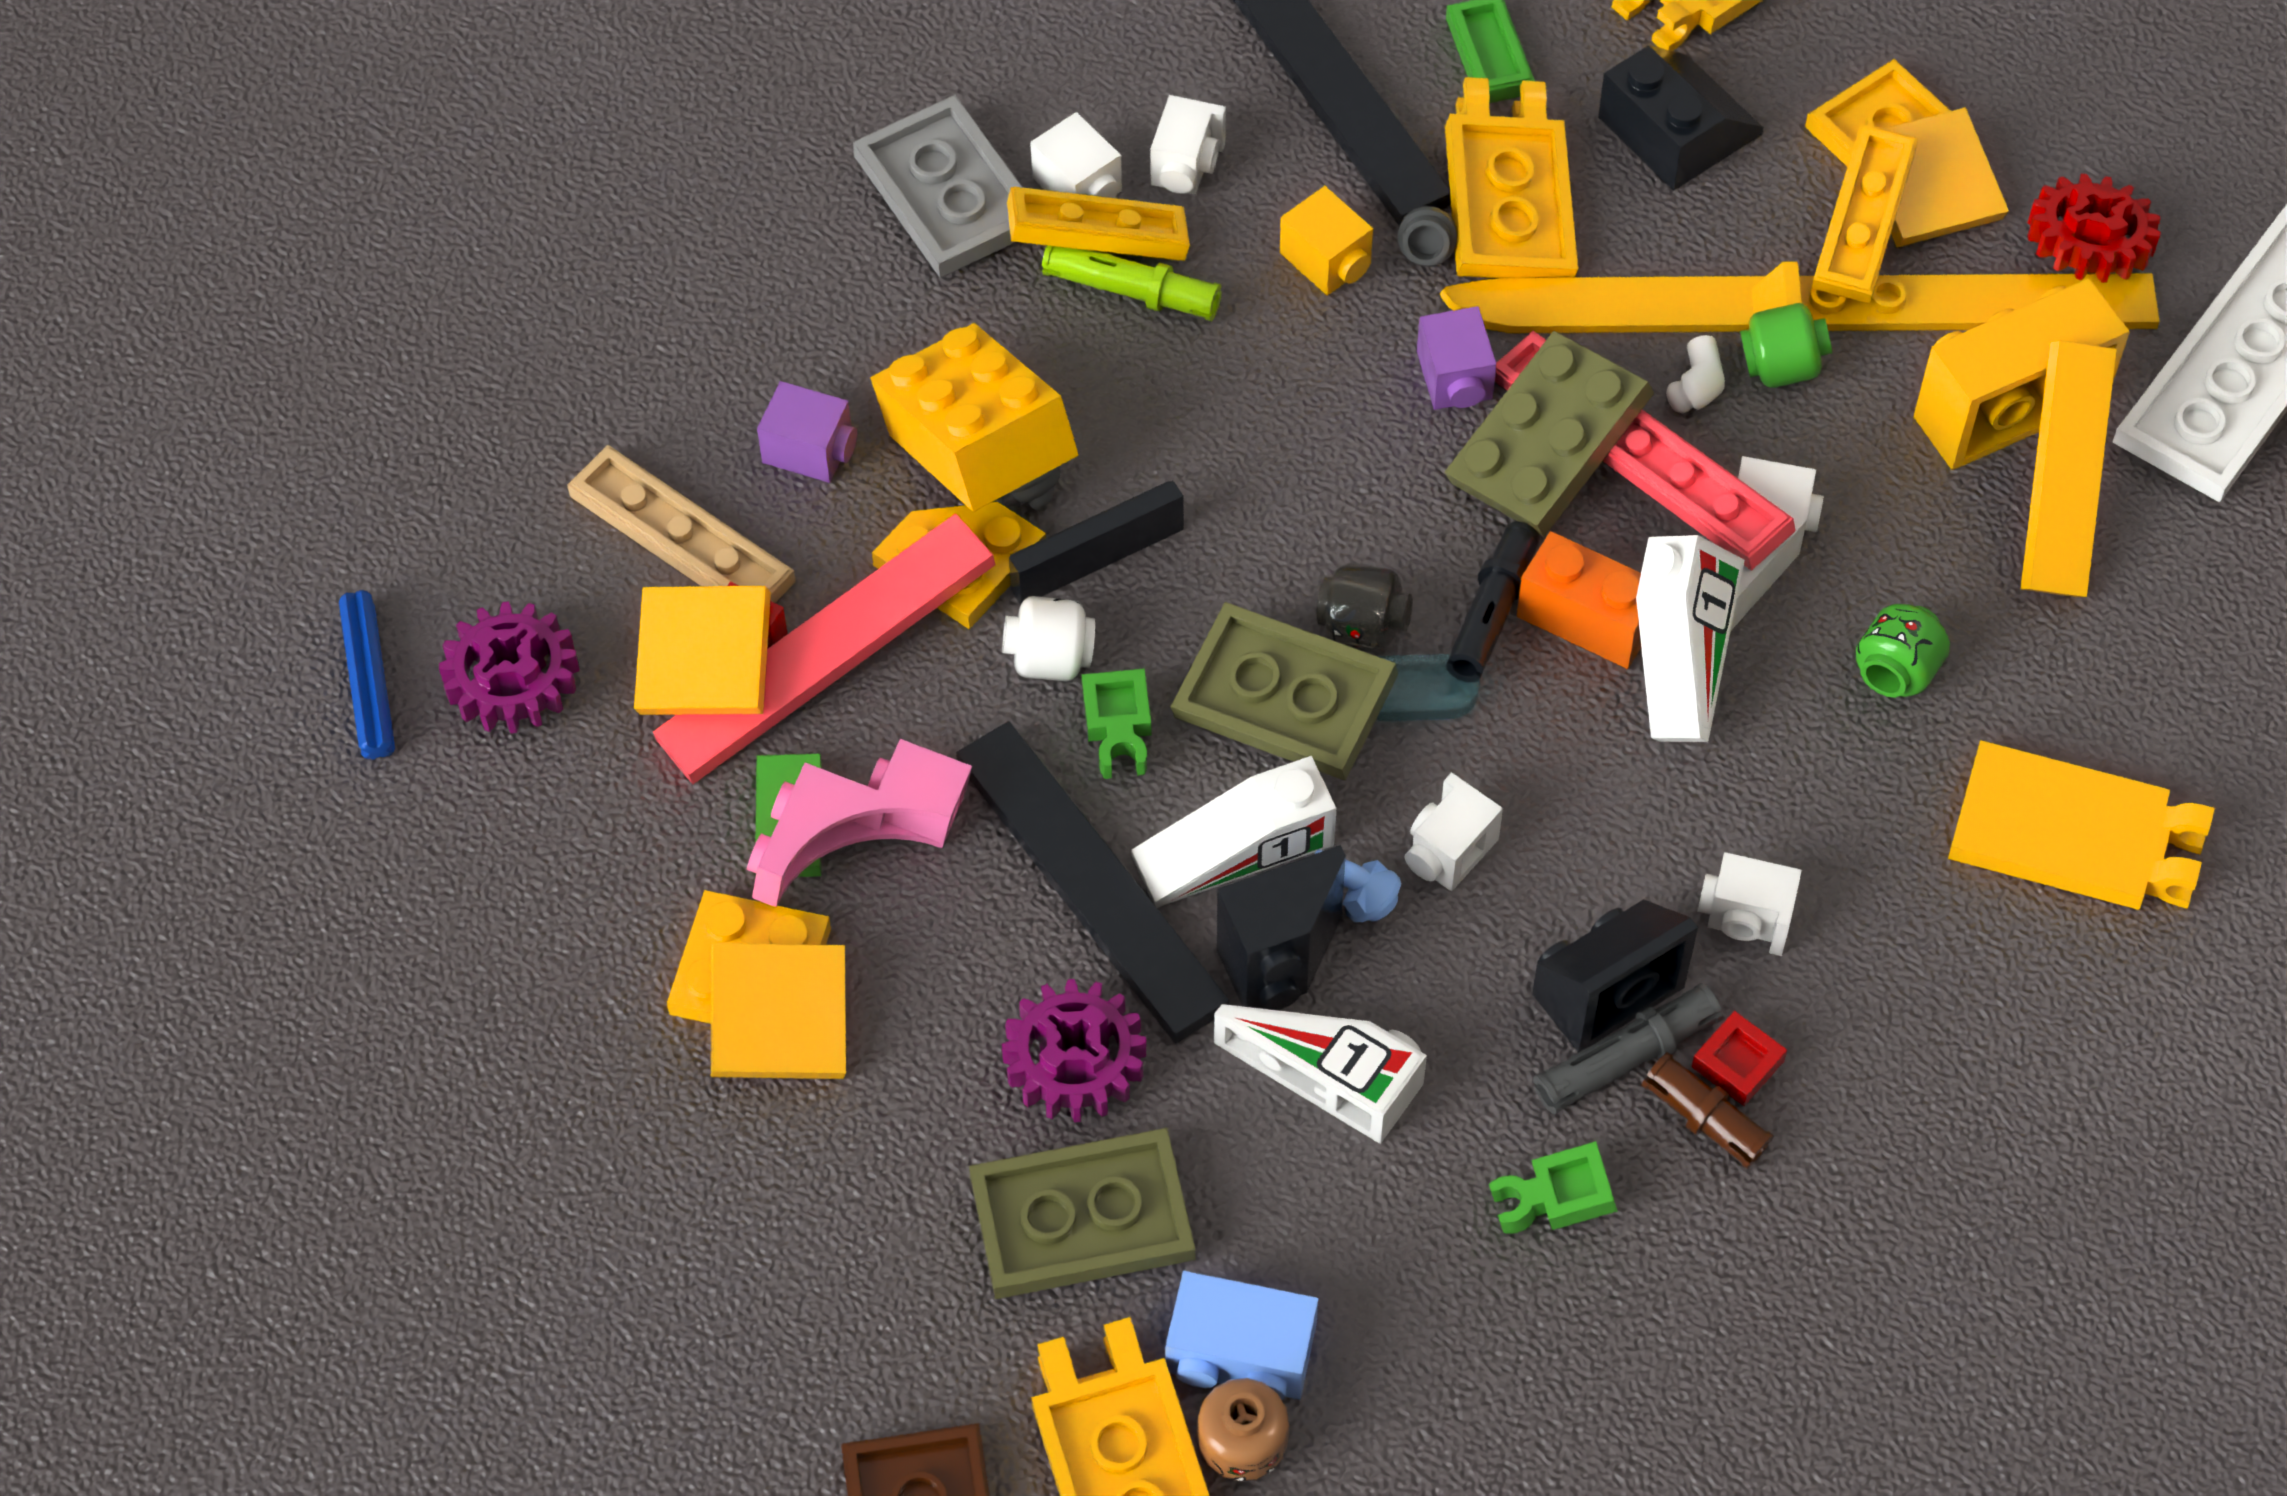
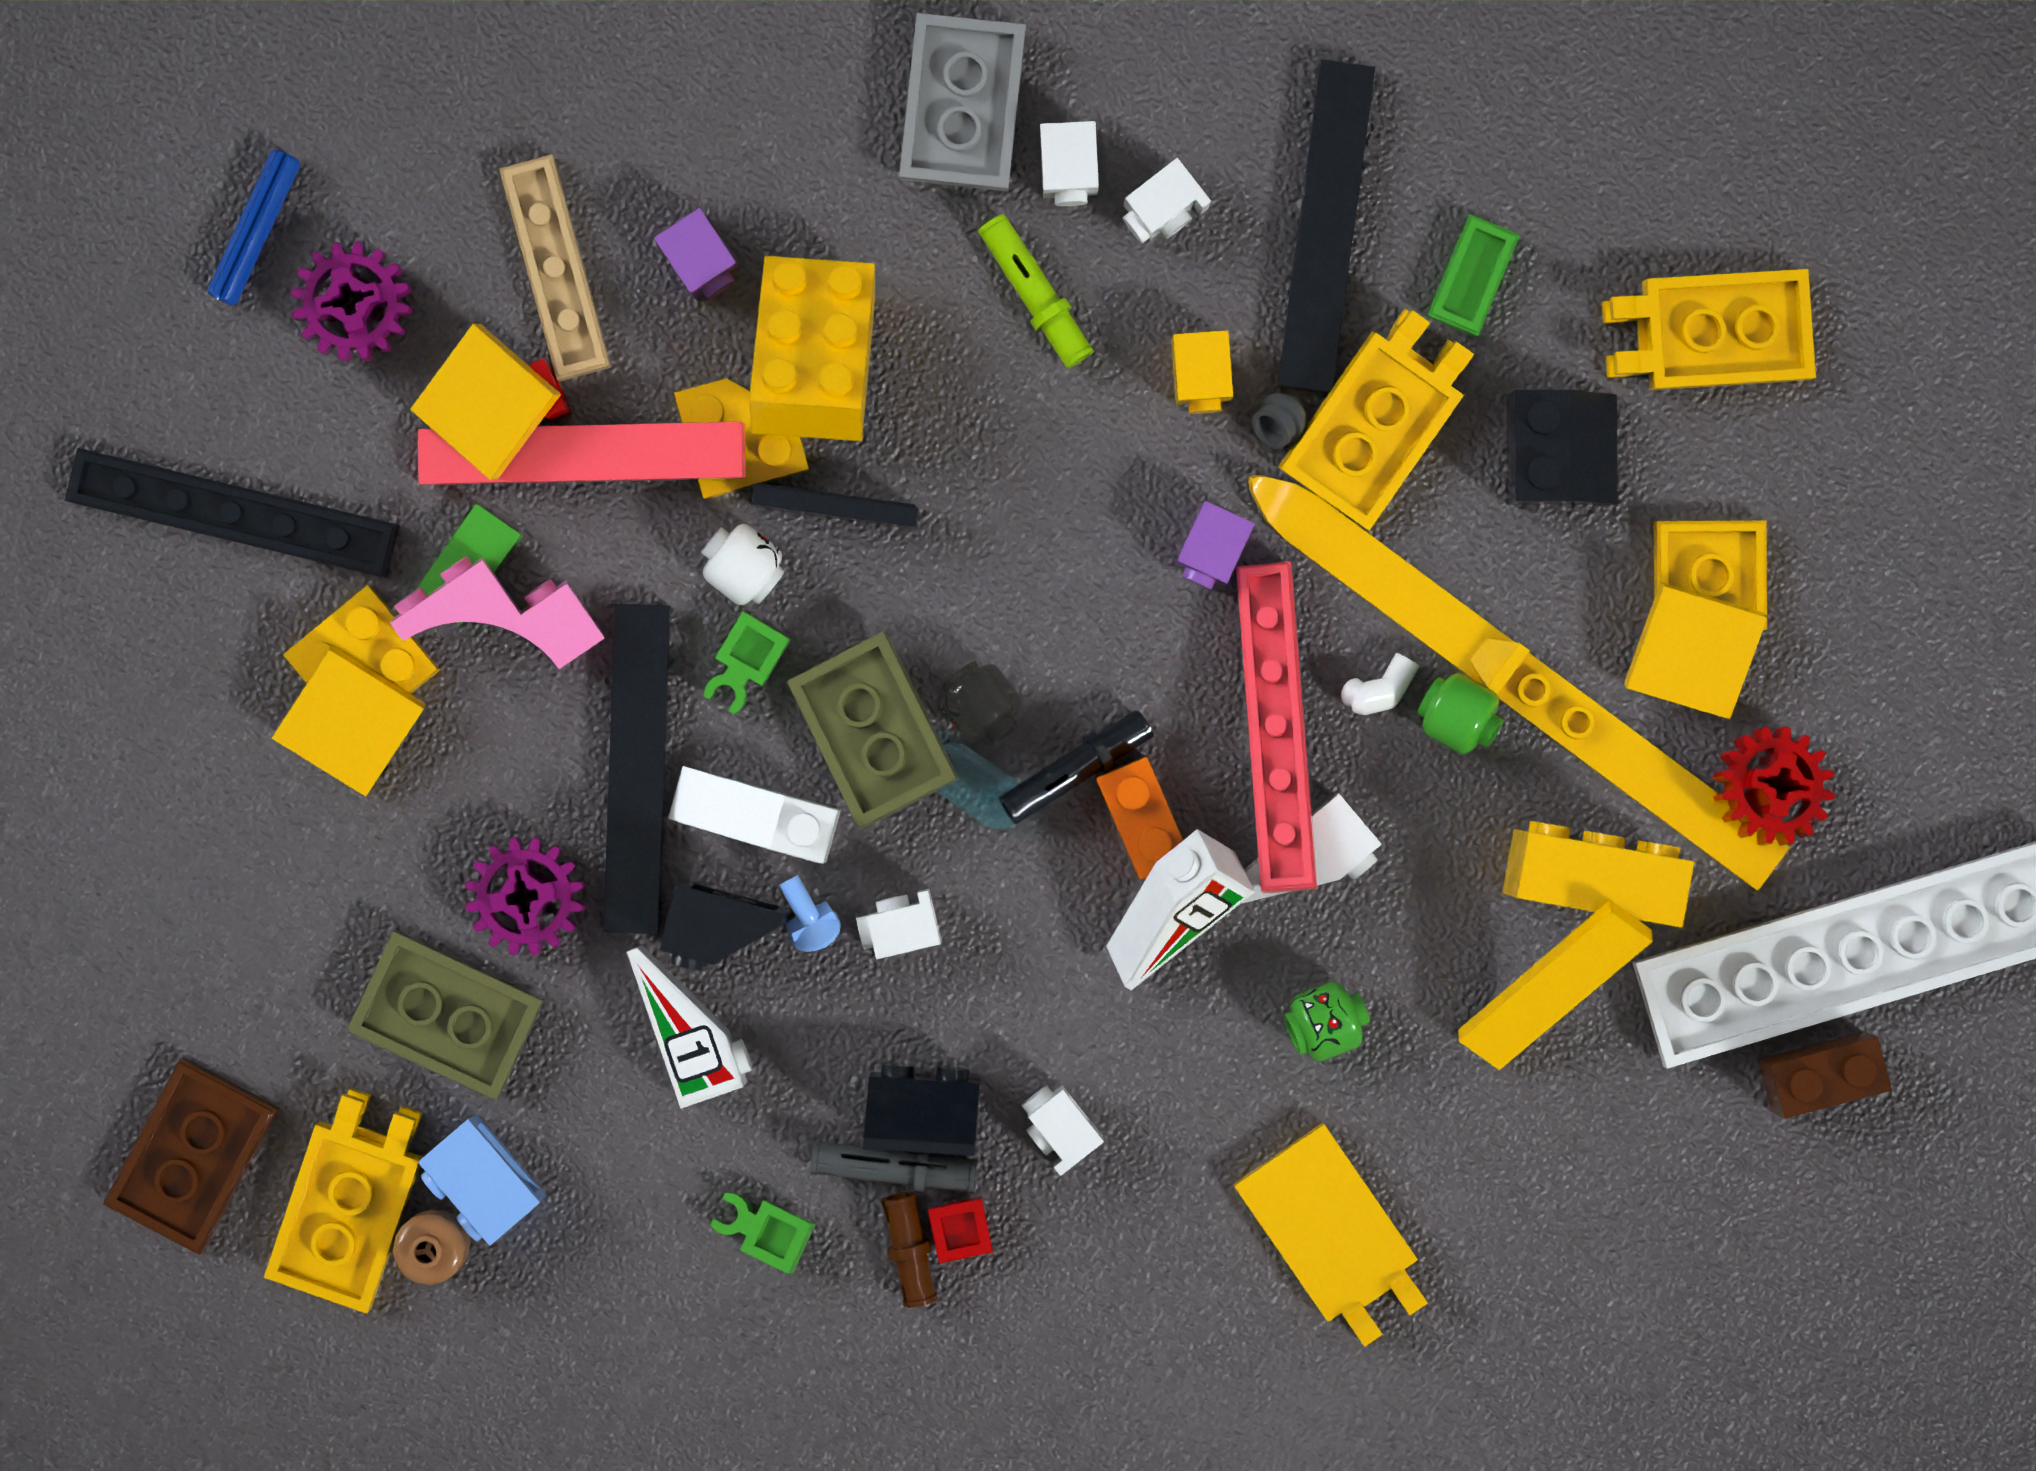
camera: 35 degrees right, 30 degrees up
(520, 923) = (232, 513): none -> black tile
(1097, 223) = (1042, 229): yellow tile -> none
(1549, 432) = (1222, 665): olive plate -> none
(1865, 213) = (1609, 654): yellow tile -> none

